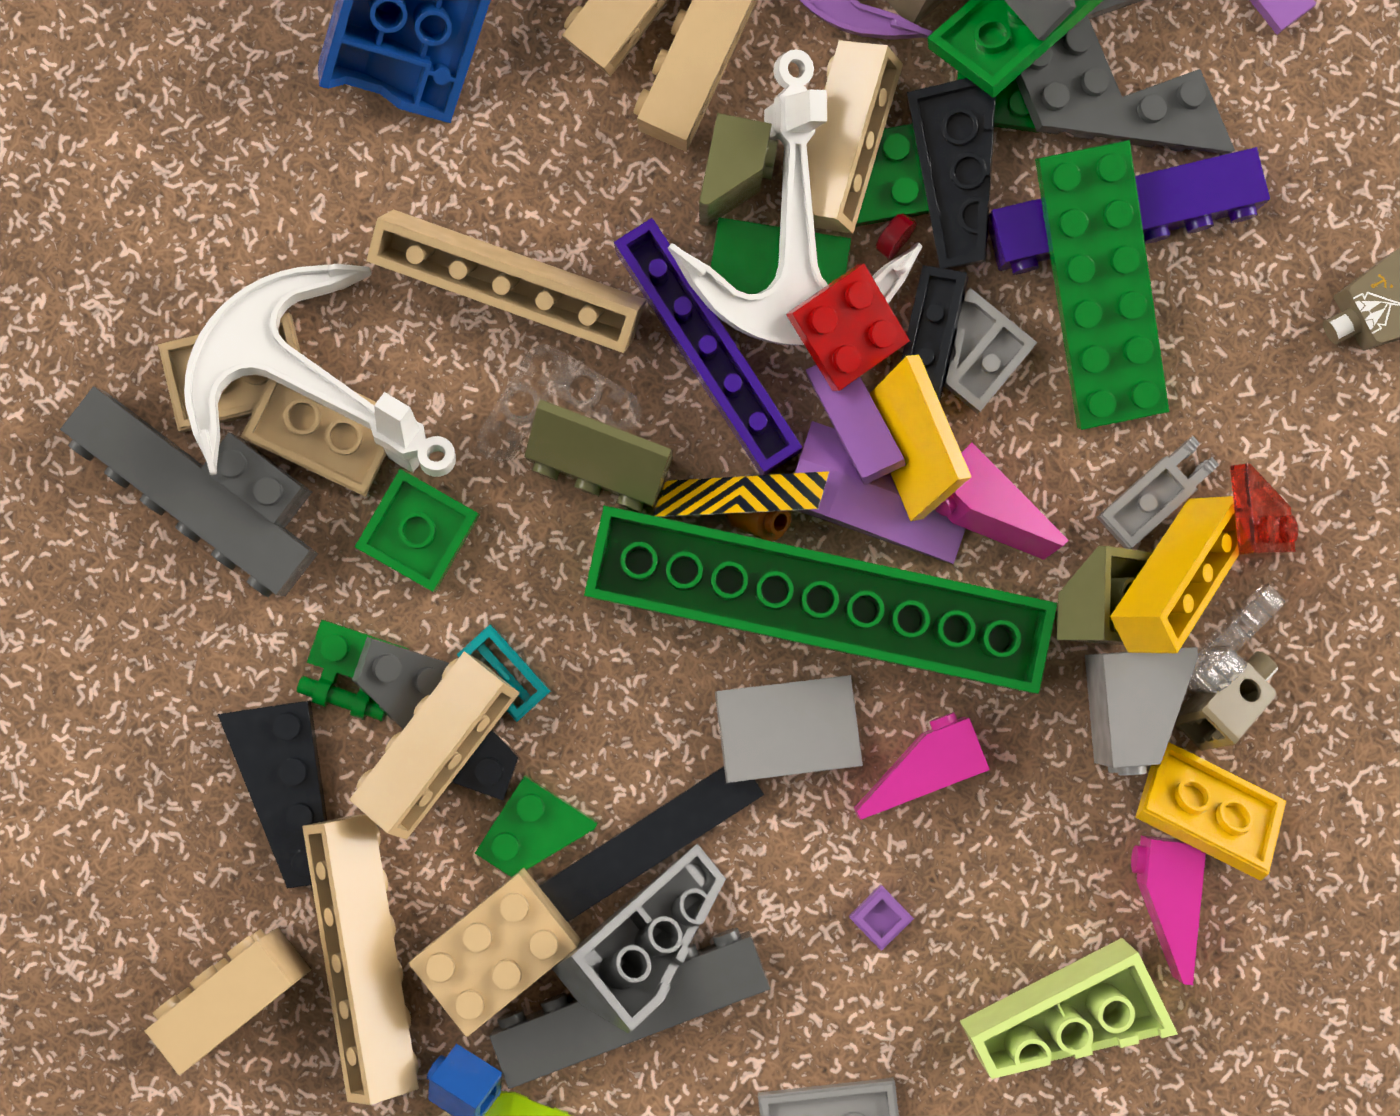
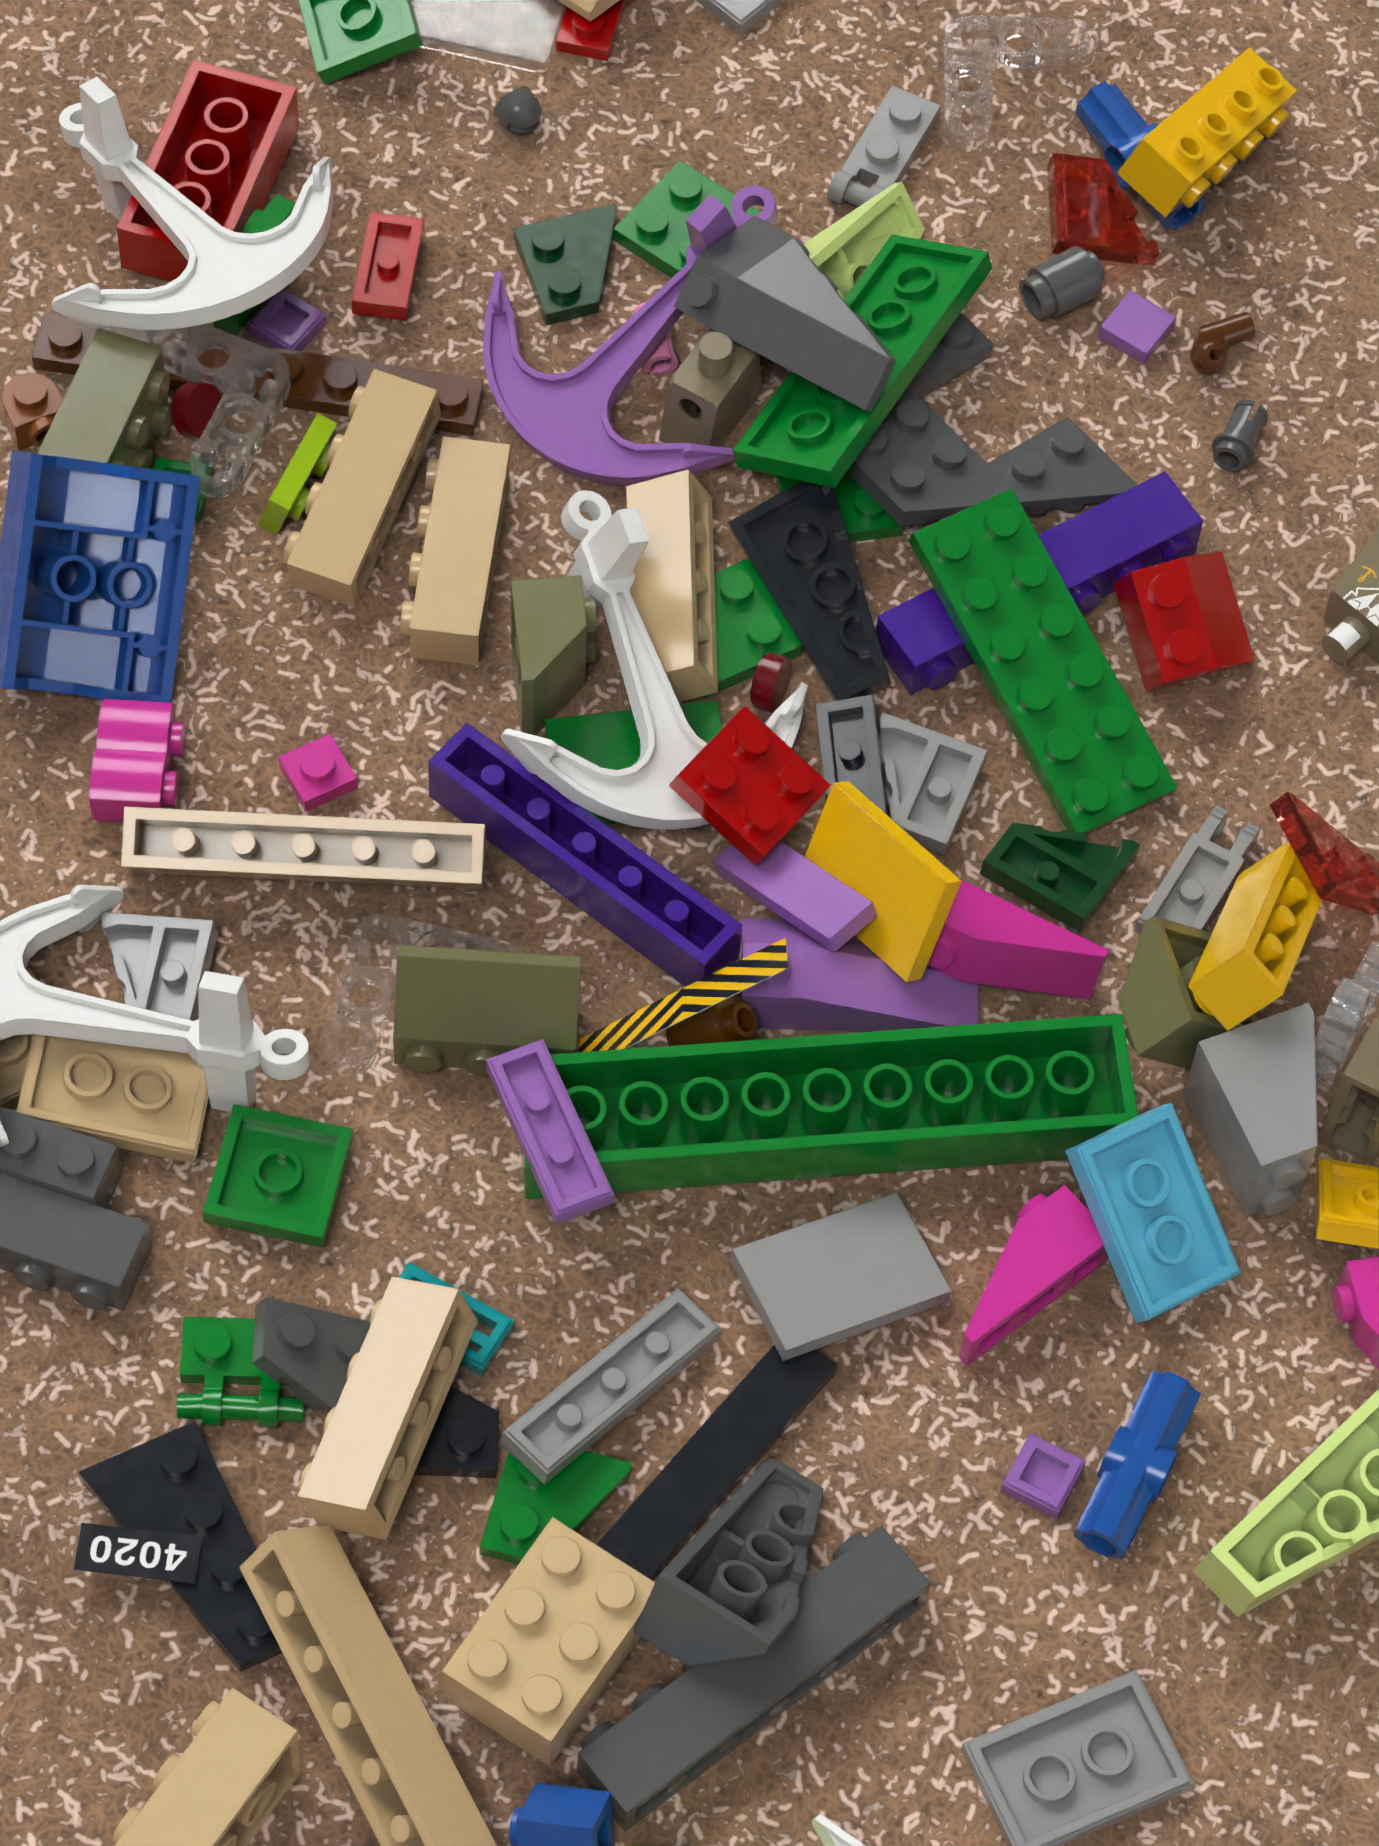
camera: 25 degrees left, 25 degrees down
(240, 788) = (138, 1553): none -> black sticker
(381, 341) = (161, 960): none -> wing
(407, 165) = (135, 758): none -> dark pink brick
(540, 210) = (317, 772): none -> dark pink plate
(600, 764) = (610, 1386): none -> light grey tile
(607, 575) = (549, 1132): none -> medium lavender tile
(948, 934) = (1137, 1464): none -> blue piece
(1025, 758) = (1153, 1212): none -> medium azure tile
(1057, 454) = (1058, 870): none -> dark green wing
(1224, 279) = (1183, 620): none -> red slope
(1327, 124) = (1236, 444): none -> dark grey pin
(1339, 30) = (1214, 339): none -> reddish brown arm

